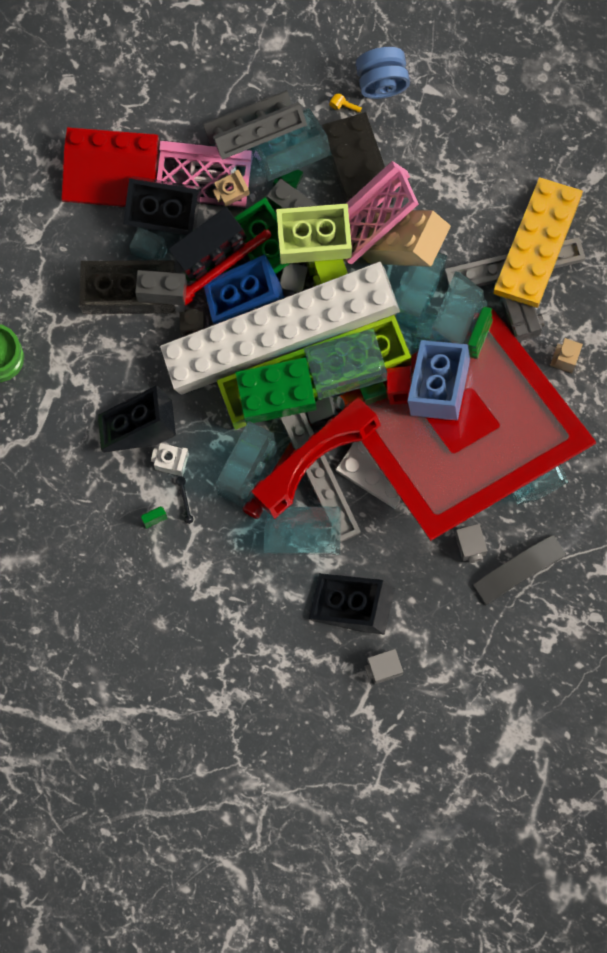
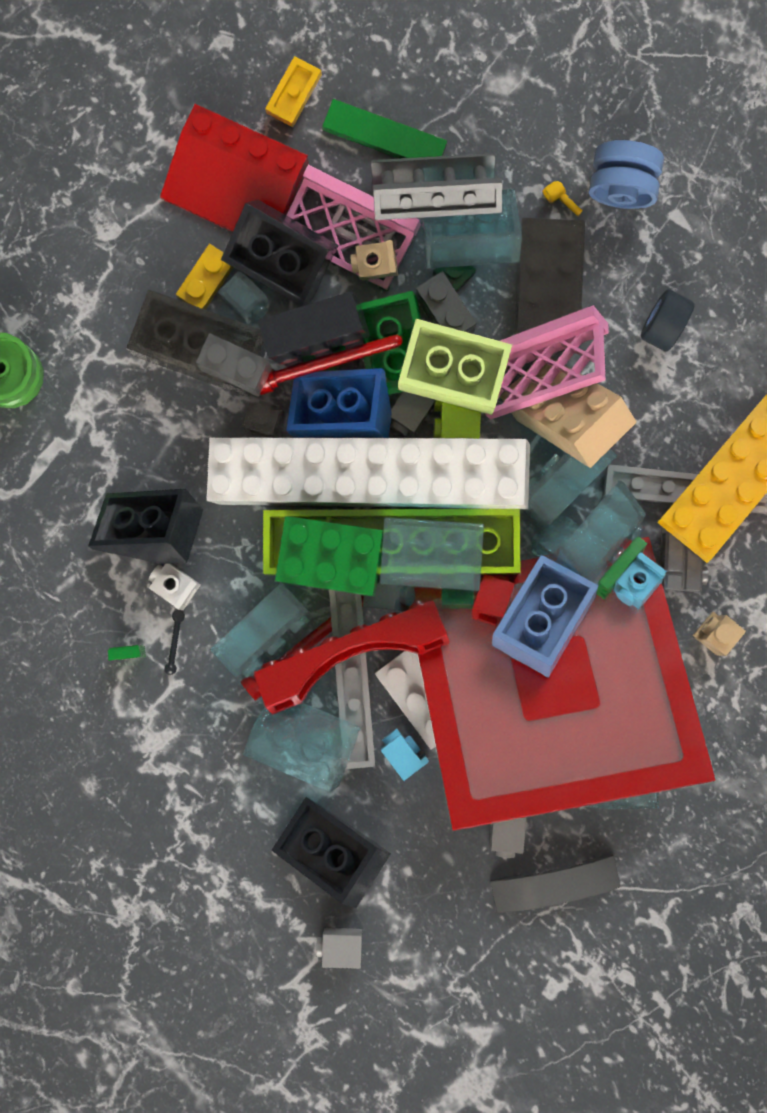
camera: 20 degrees right, 10 degrees up
(115, 241) = (204, 278): none -> yellow plate
(130, 97) = (293, 91): none -> yellow plate
(201, 104) = (380, 132): none -> green tile
(377, 516) = (402, 754): none -> medium azure brick
(448, 158) = (667, 320): none -> black wheel
(496, 336) = (648, 573): none -> medium azure brick

